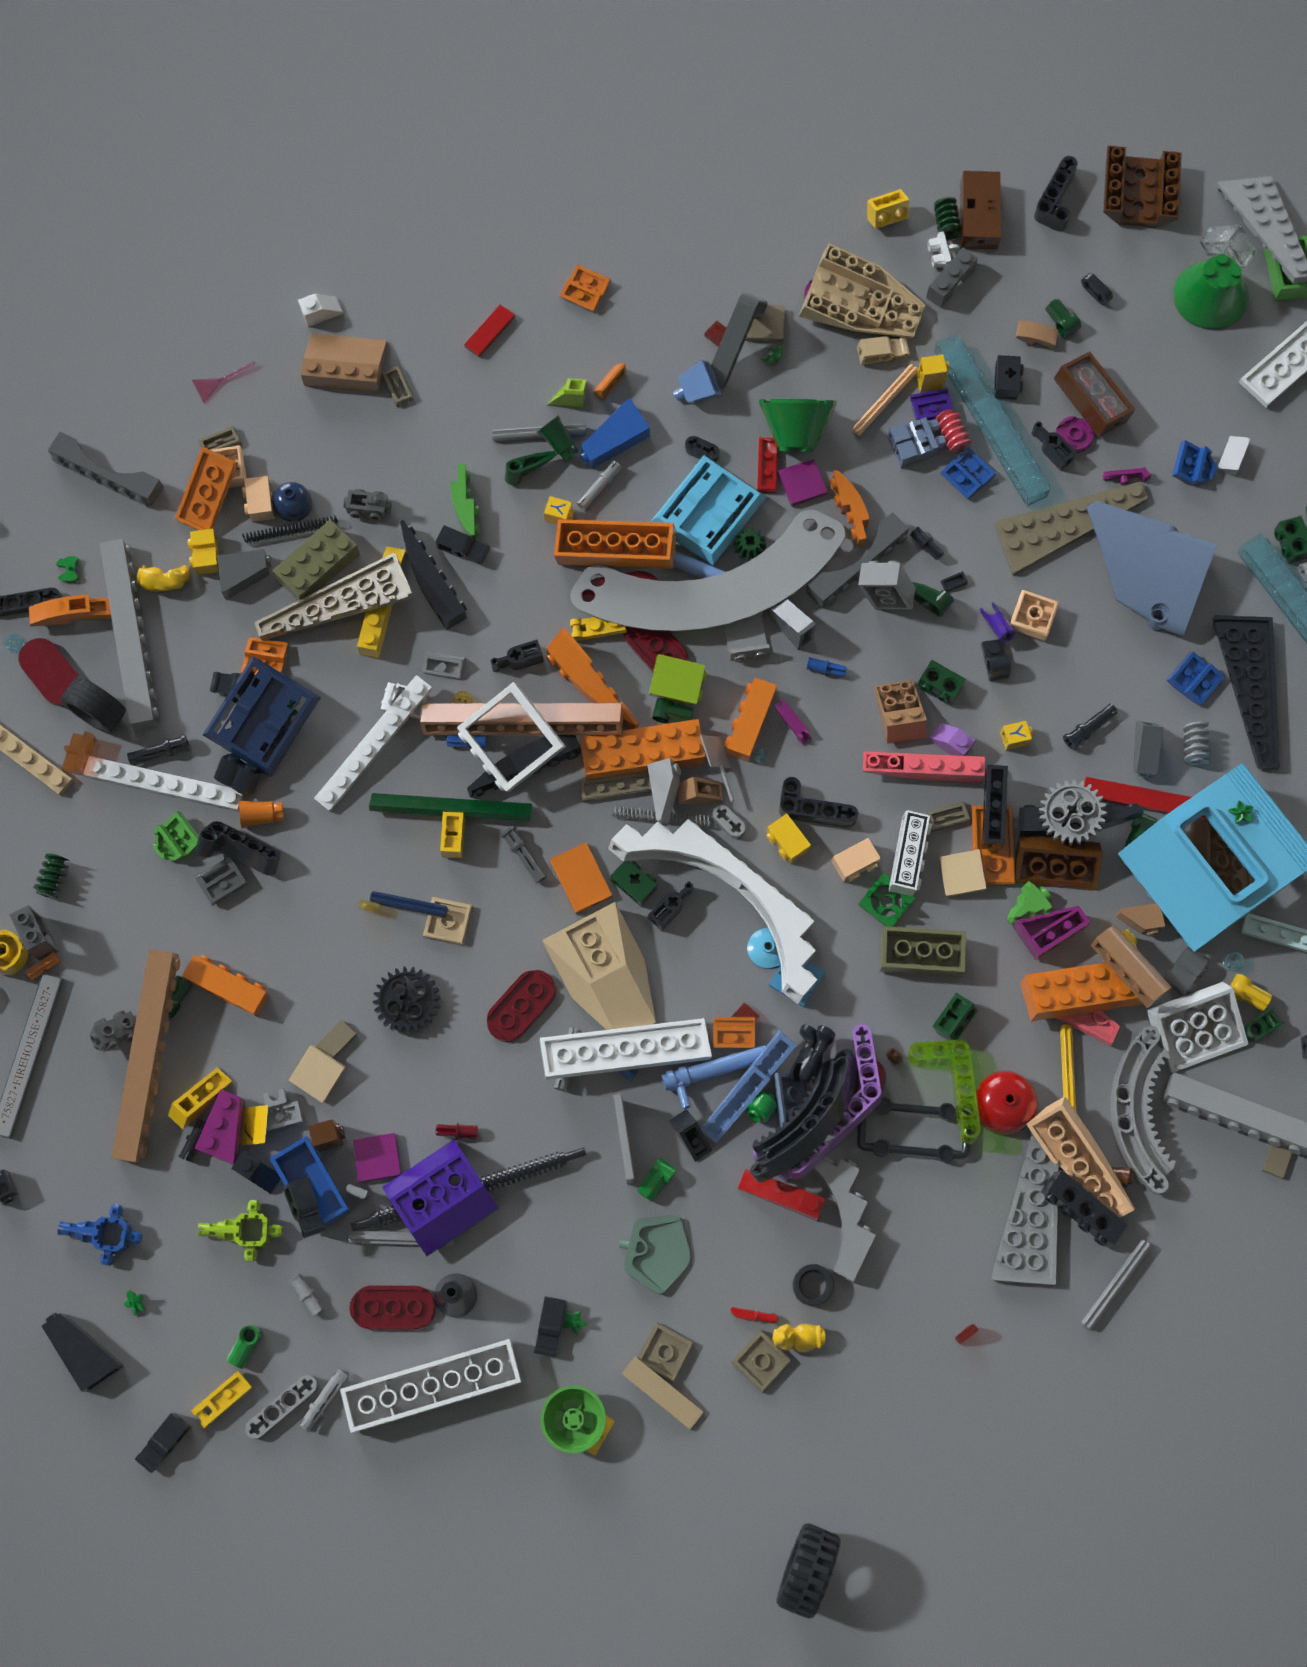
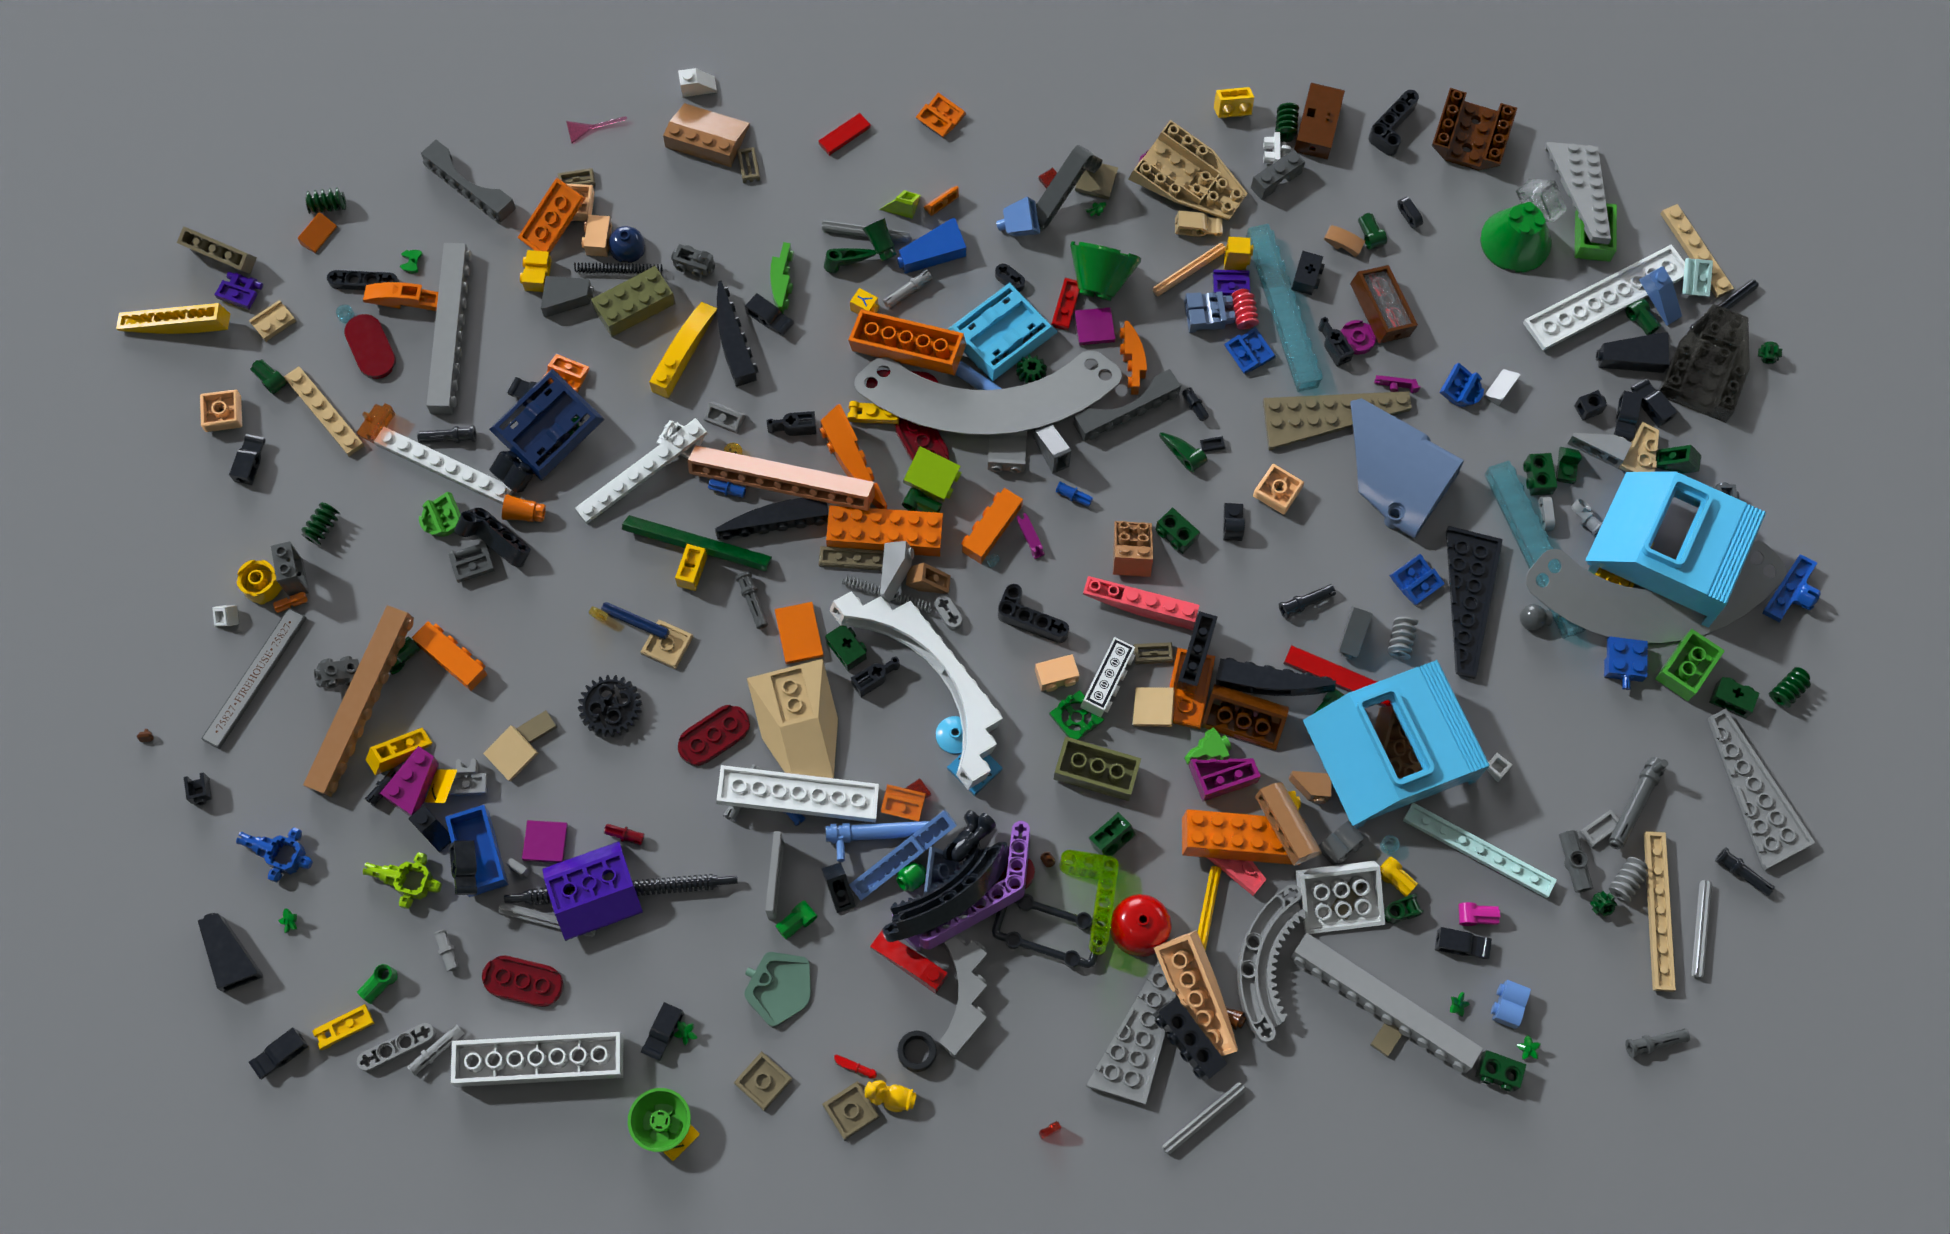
camera: 10 degrees right, 5 degrees down
(93, 705) = (398, 380): black tyre -> none
(155, 580) = (485, 286): yellow animal -> none
(326, 1135) = (503, 809): reddish brown brick -> none
(359, 592) = (665, 334): dark tan wing -> none
(462, 1301) = (583, 983): black cone -> none
(536, 716) = (805, 504): white window -> none
(662, 1392) = (750, 1117): tan slope -> none
(717, 757) = (952, 551): light grey piece -> none
(787, 838) = (999, 639): yellow brick -> none
(886, 585) = (1146, 431): light grey brick -> none
(952, 740) = (1174, 584): medium lavender slope -> none
(999, 624) = (1244, 491): dark purple piece -> none
(1016, 735) = (1235, 593): yellow brick -> none
(1088, 821) = (1280, 683): light grey gear -> none
(1242, 812) = (1424, 704): green plant -> none

